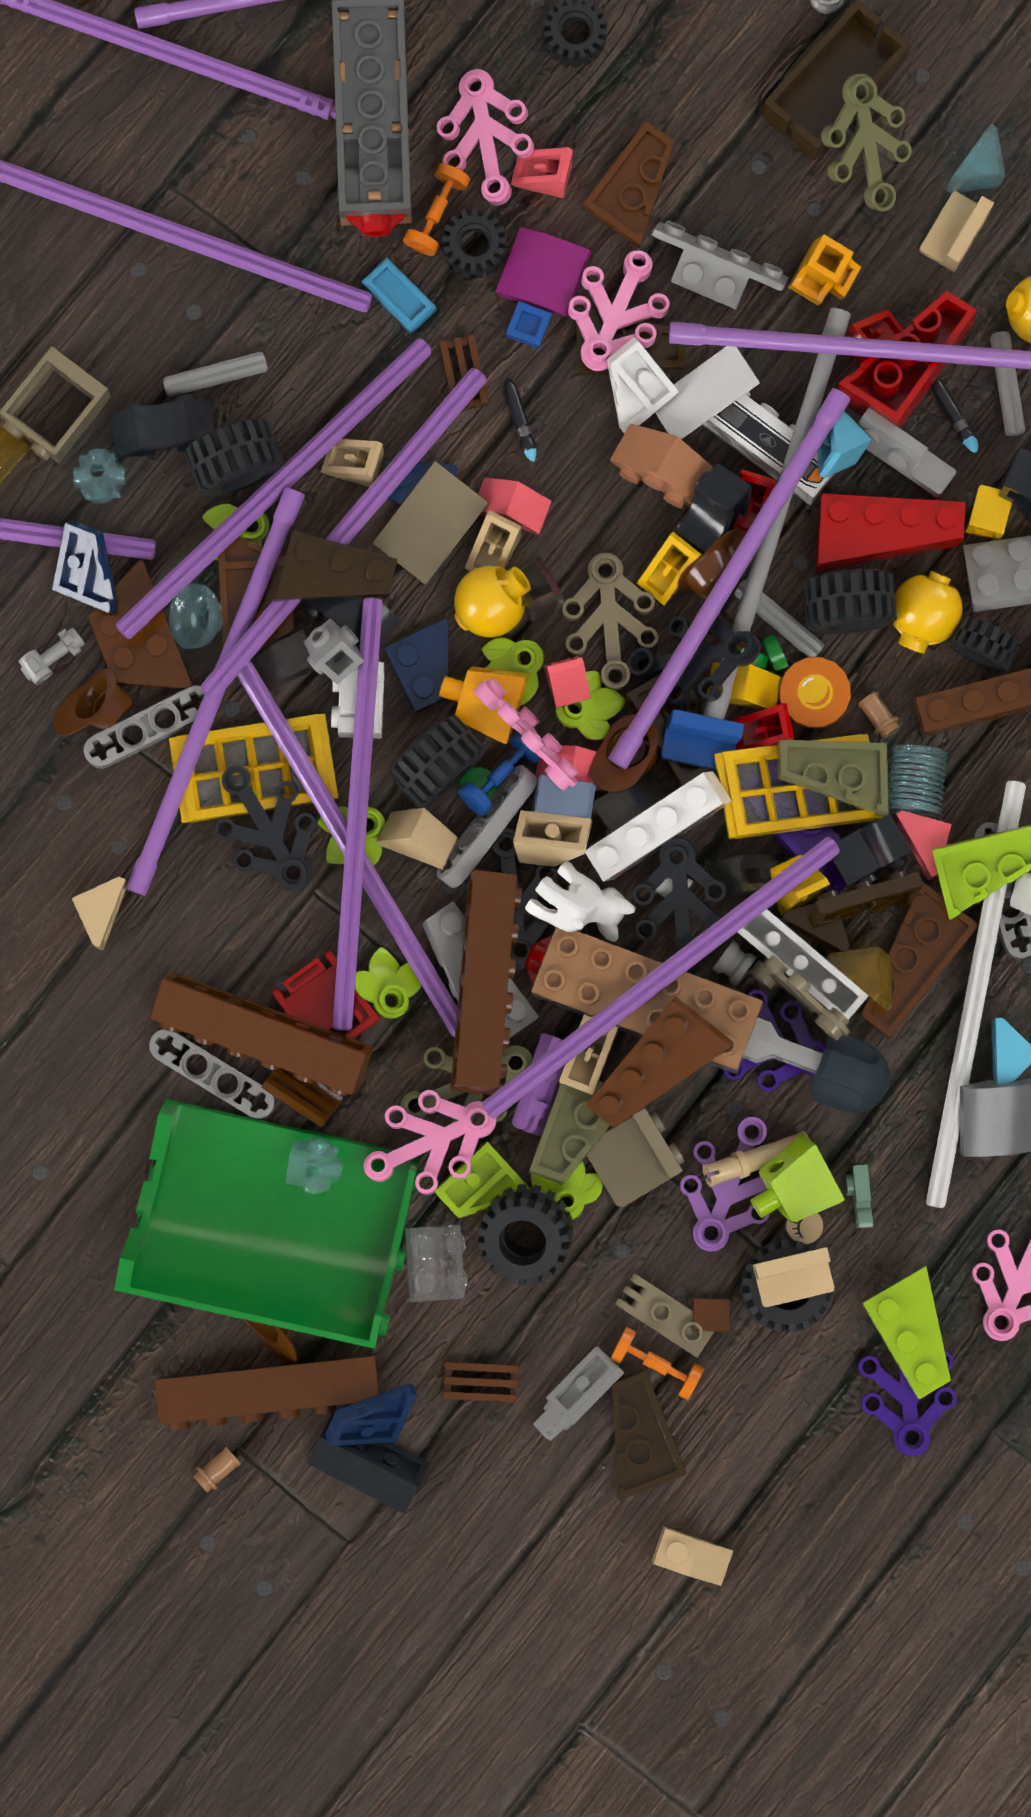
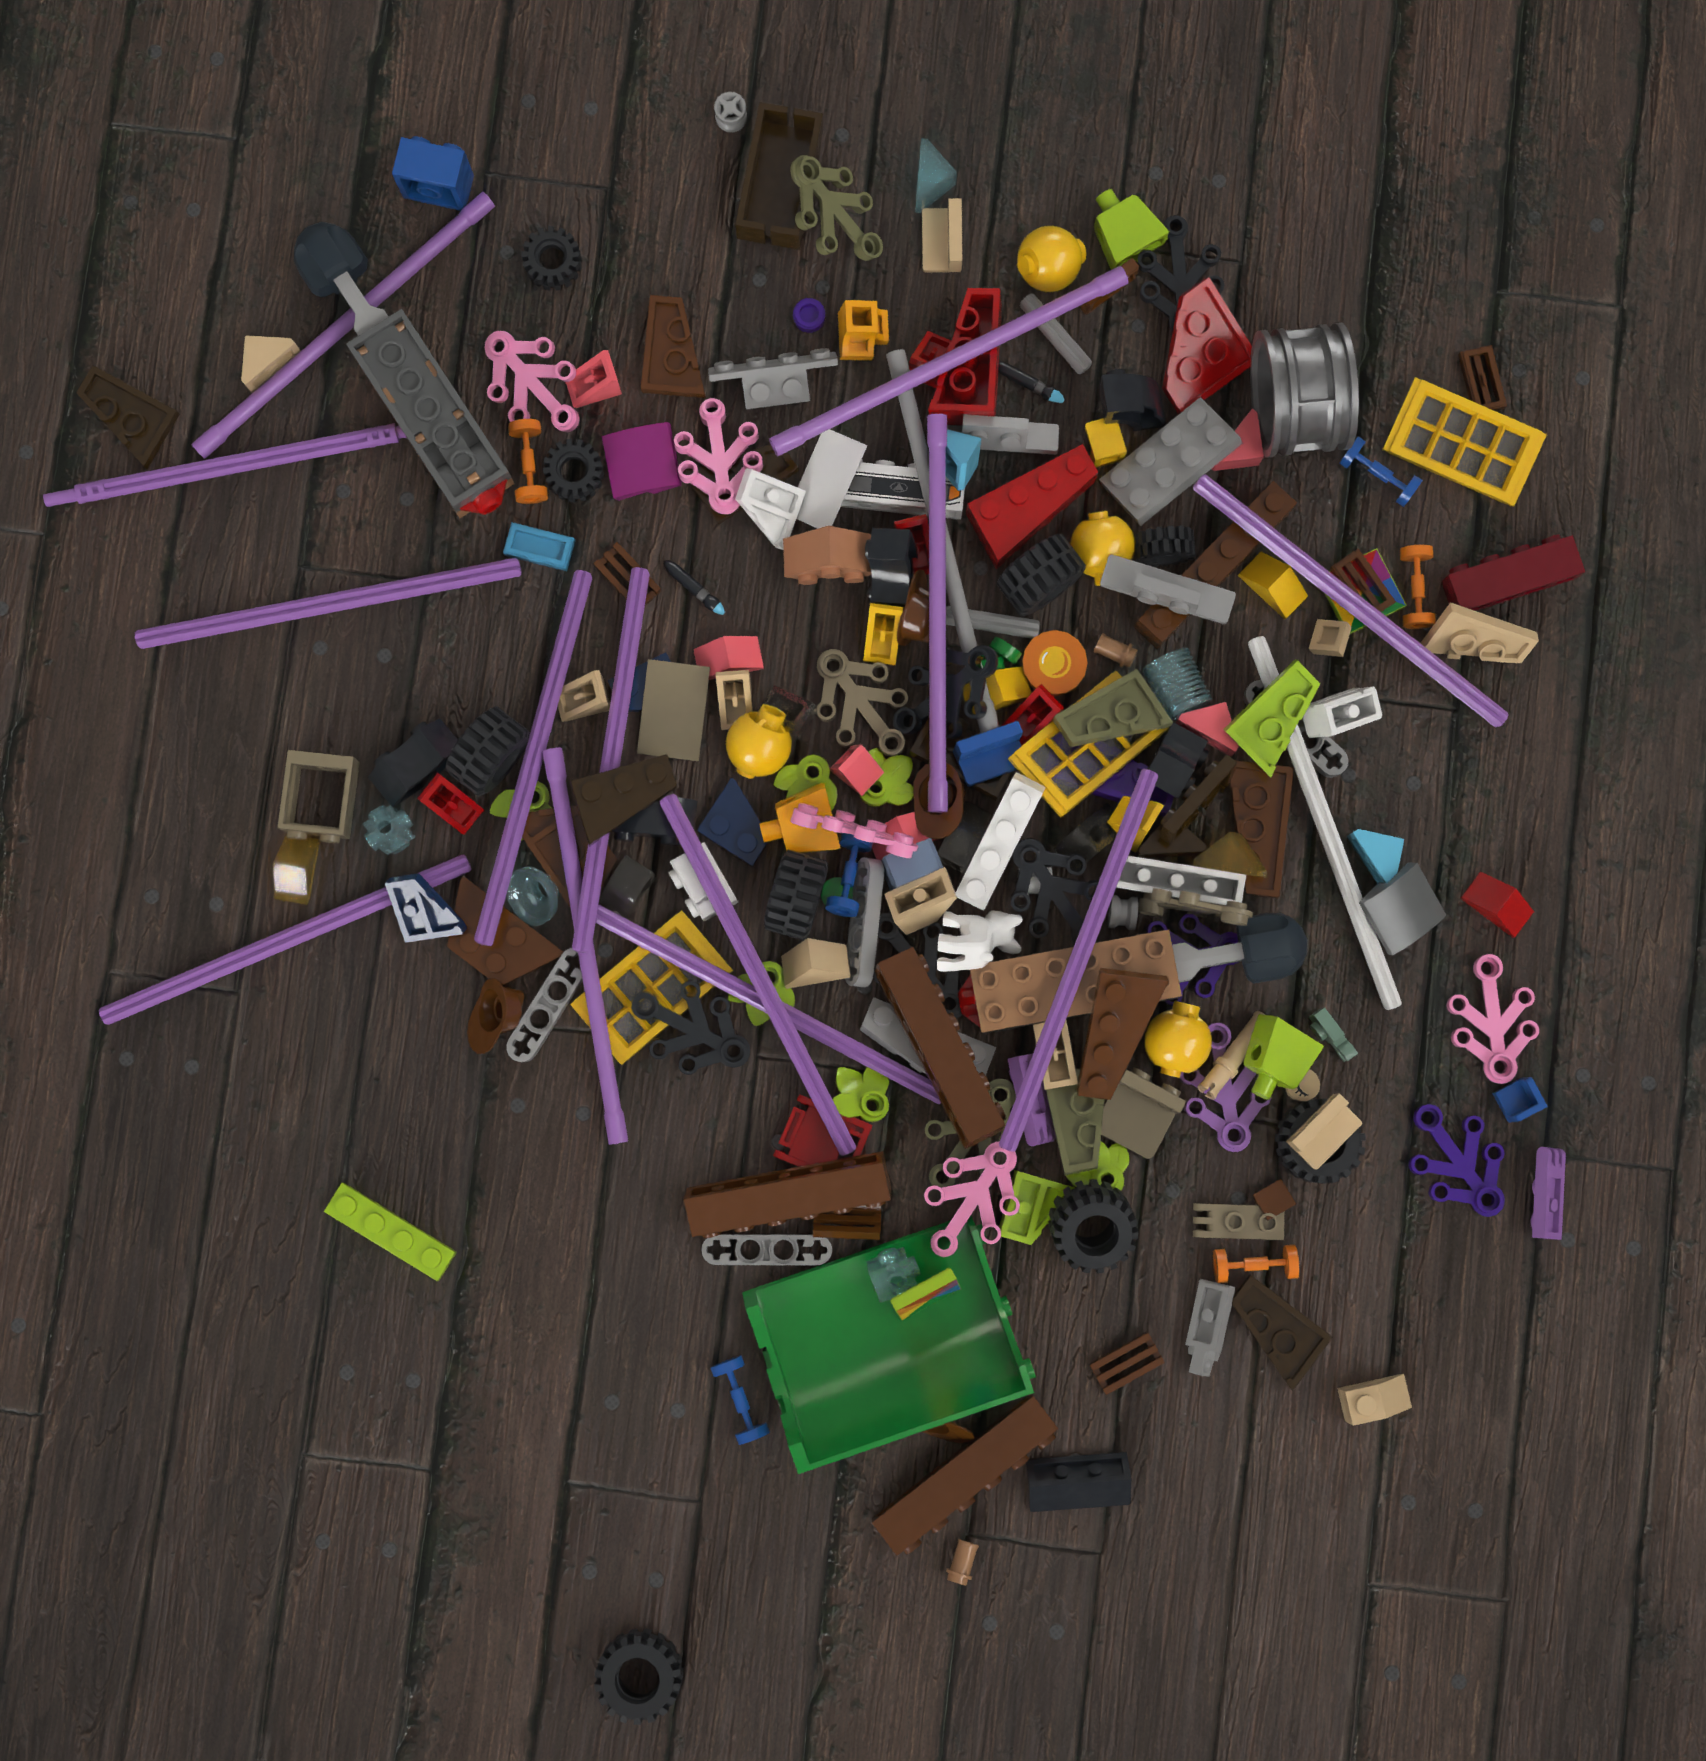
camera: 30 degrees left, 0 degrees up
(36, 666) = (429, 1010): light grey bar -> none
(99, 909) = (598, 1174): tan slope -> none
(103, 1195) = (740, 1400): none -> blue wheel
(171, 486) = (450, 804): none -> red slope
(215, 374) = (431, 694): light grey axle -> none
(332, 1201) = (925, 1293): none -> tile
(333, 650) = (661, 857): light grey brick -> none
(373, 1419) = (1063, 1447): dark blue wing -> none
(435, 1263) = (1035, 1292): clear bracket -> none
(528, 325) = (655, 509): blue plate -> none
(711, 1111) = (1178, 1040): none -> yellow brick
(785, 228) = (809, 315): none -> dark purple tile
(911, 1331) = (1438, 1117): lime wing -> none
(959, 685) = (1167, 589): none -> light grey bracket
(972, 1466) = (1548, 1193): none -> medium lavender hinge
(999, 1362) = (1520, 1099): none -> blue panel

